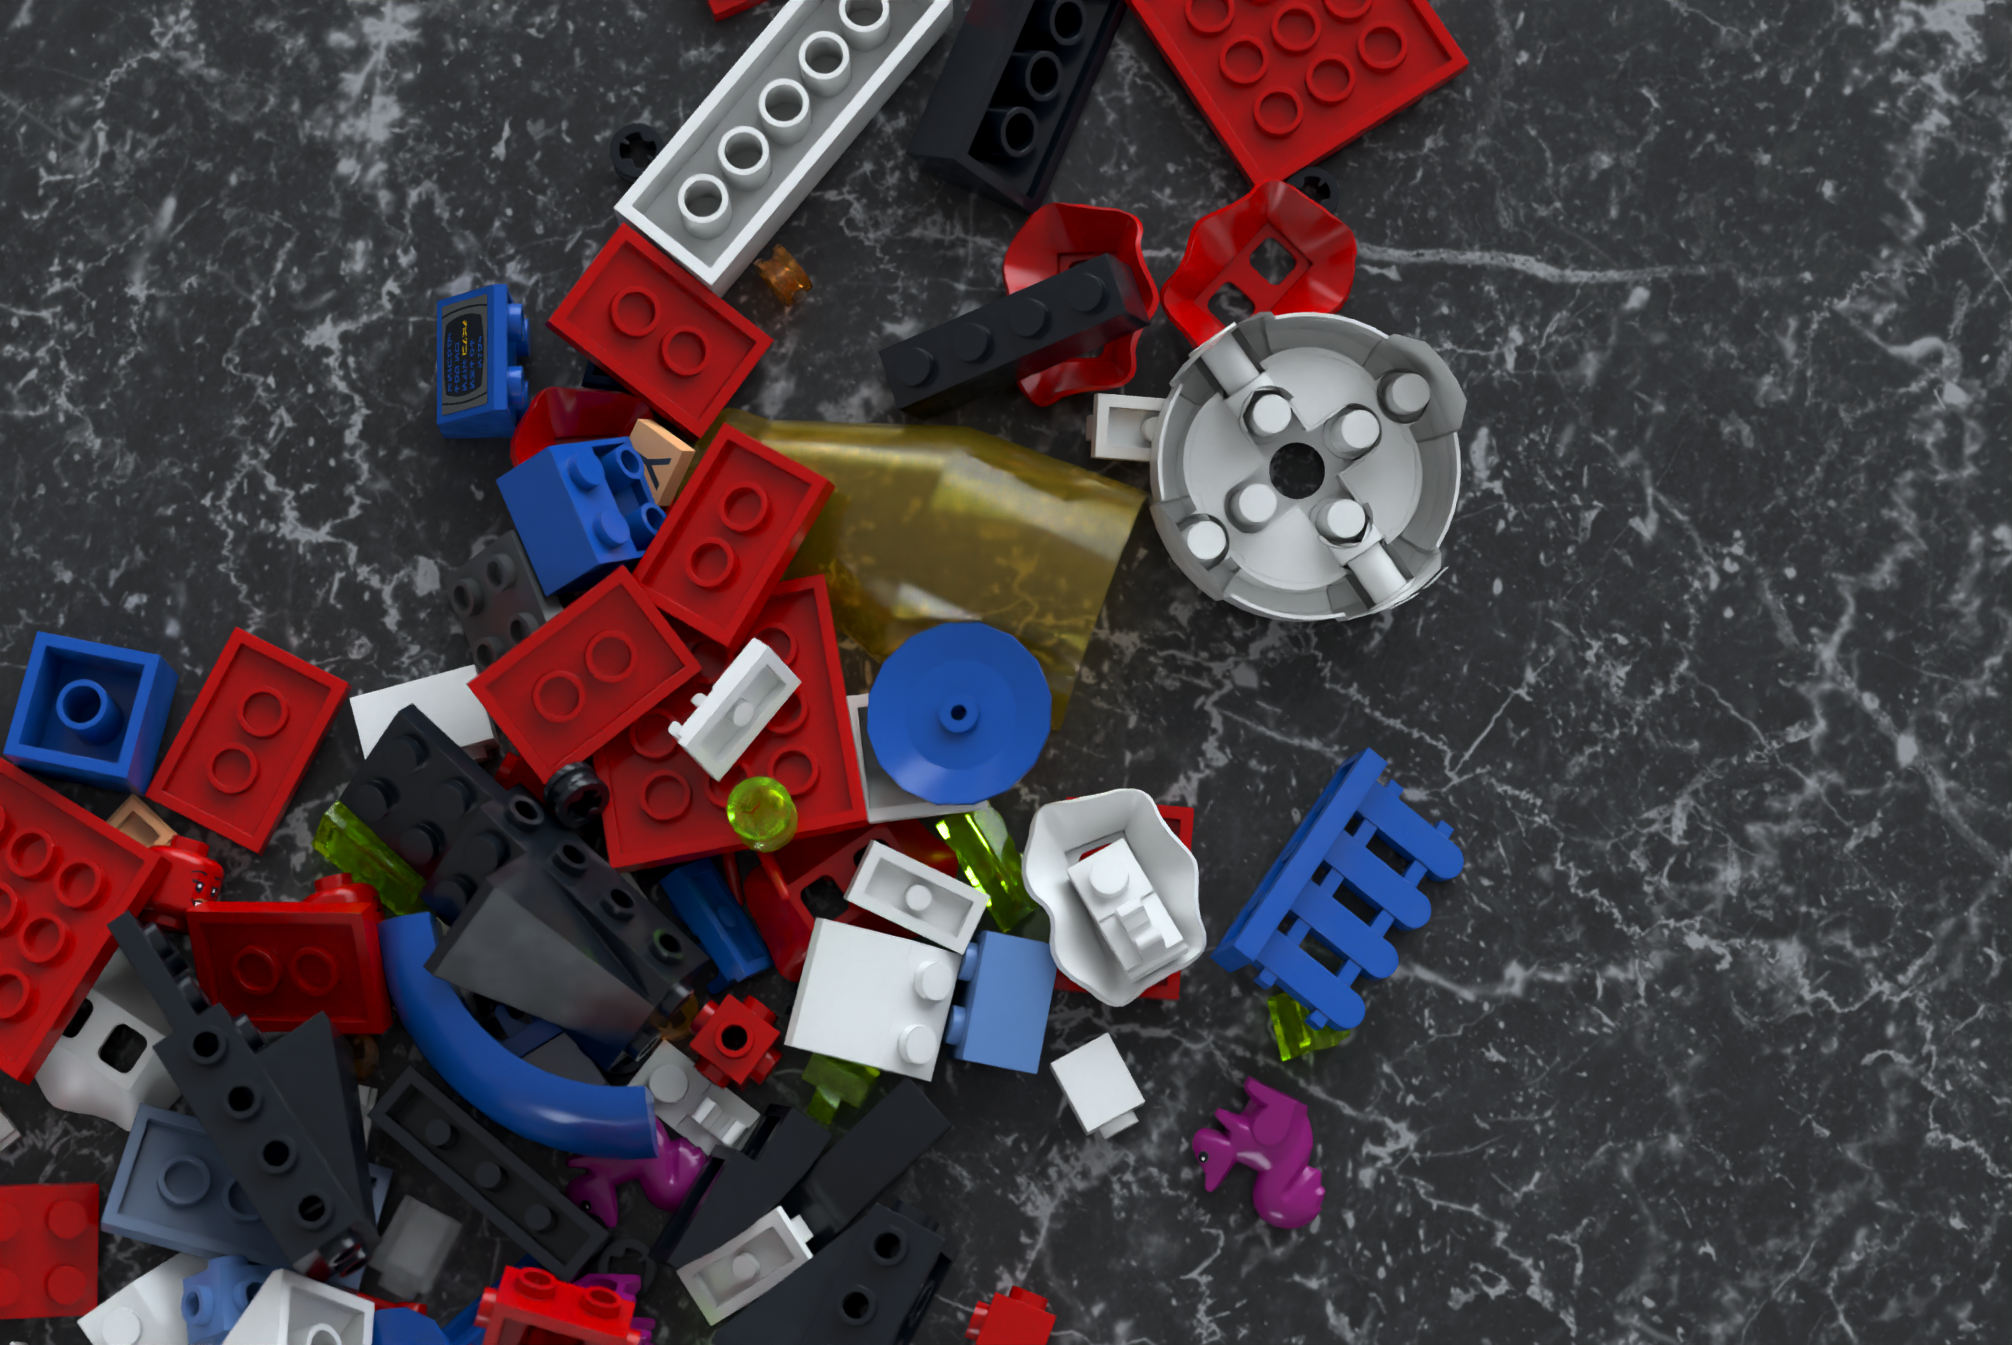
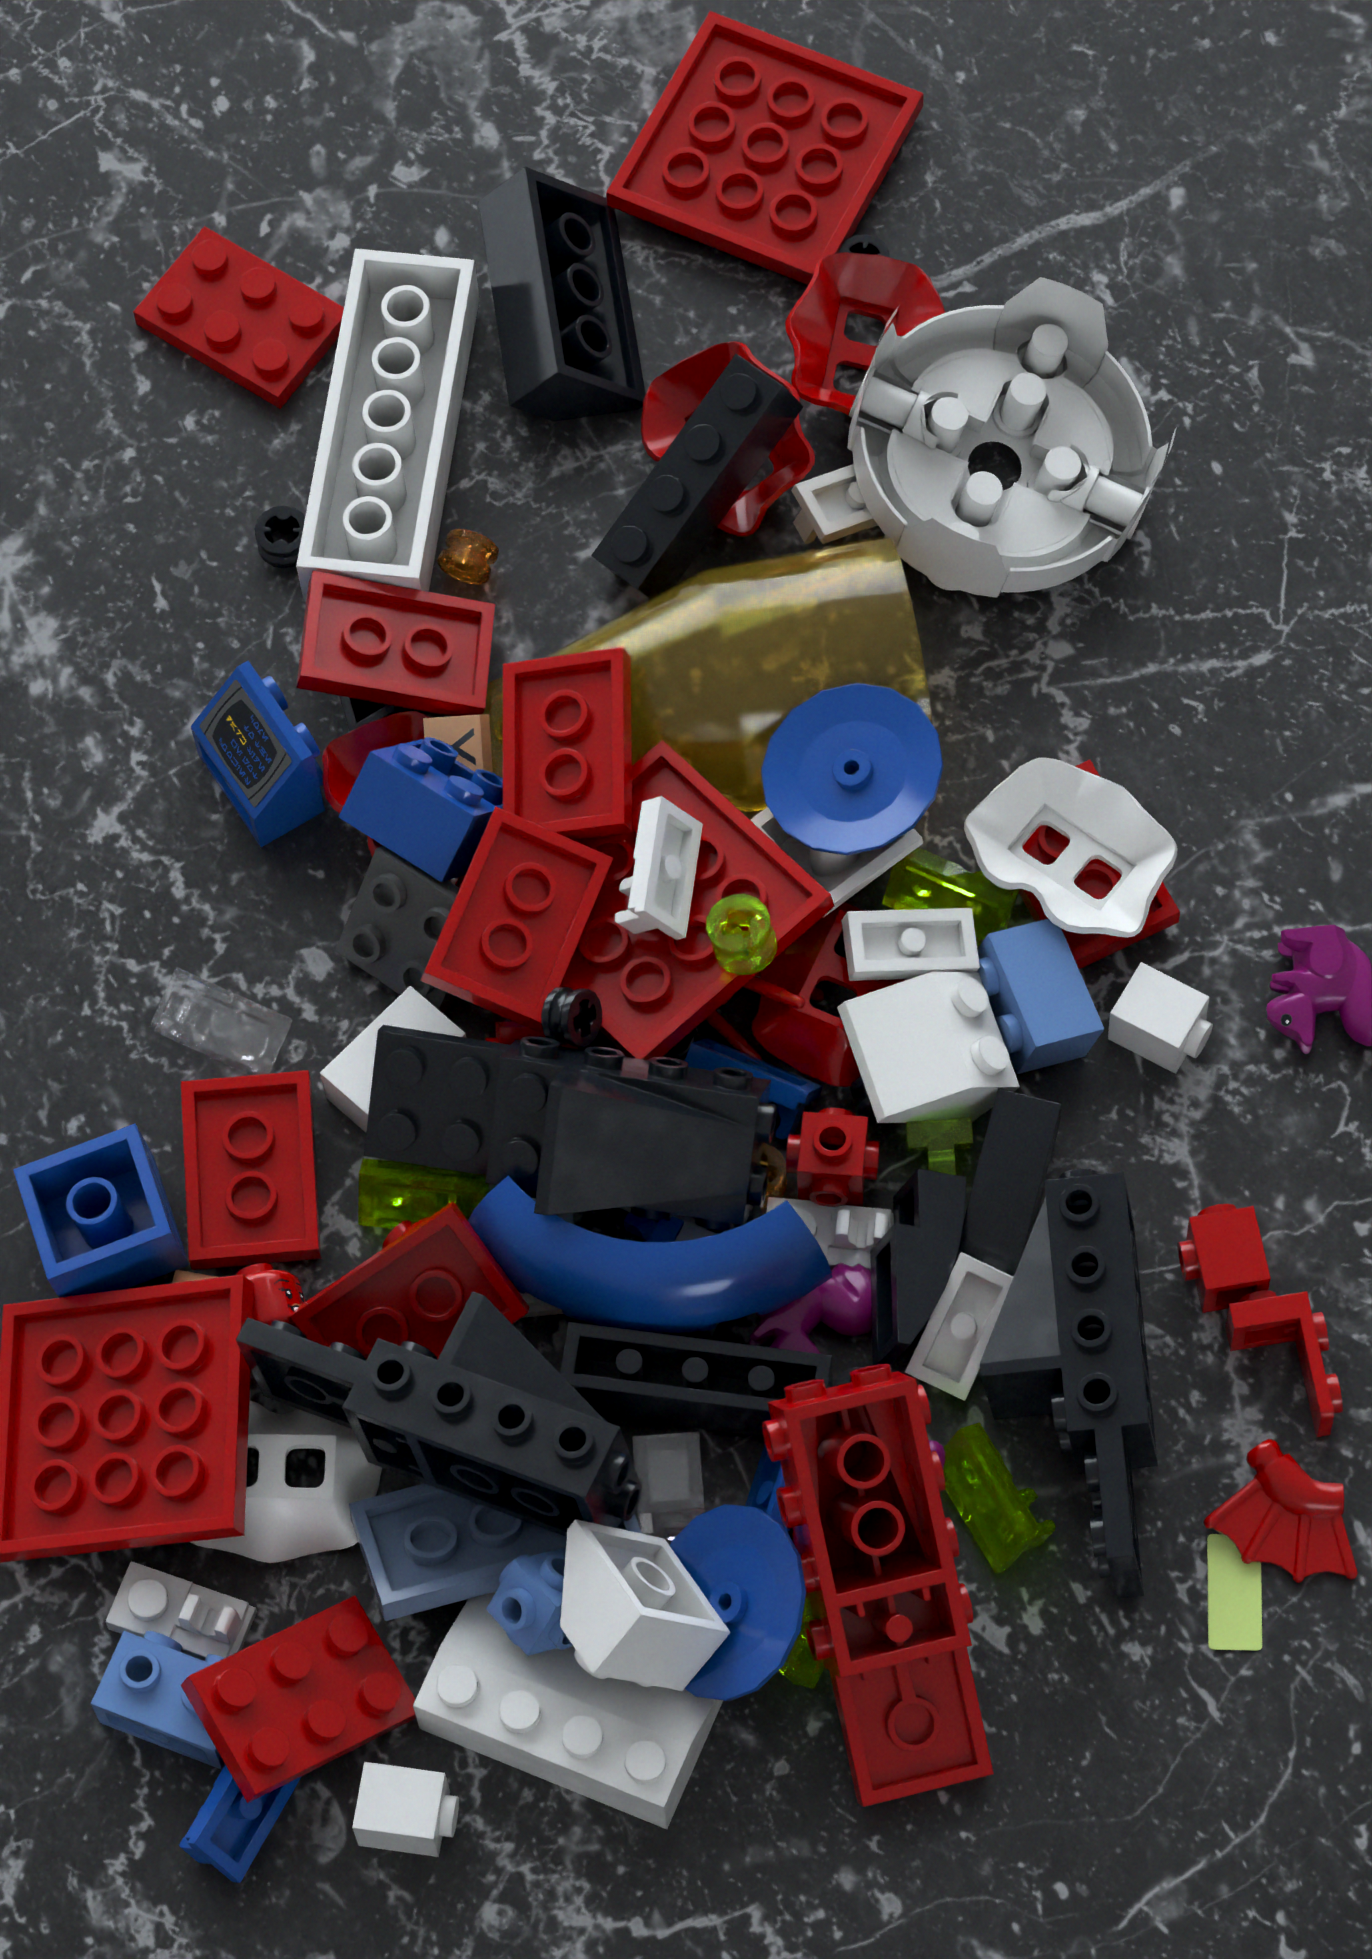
camera: 25 degrees left, 15 degrees down
(300, 594) = (220, 1023): none -> clear plate
(1127, 910) = (1092, 852): white plate -> none
(1293, 1034) = (1294, 870): clear neon green tile -> none
(1313, 910) = (1215, 768): blue fence -> none

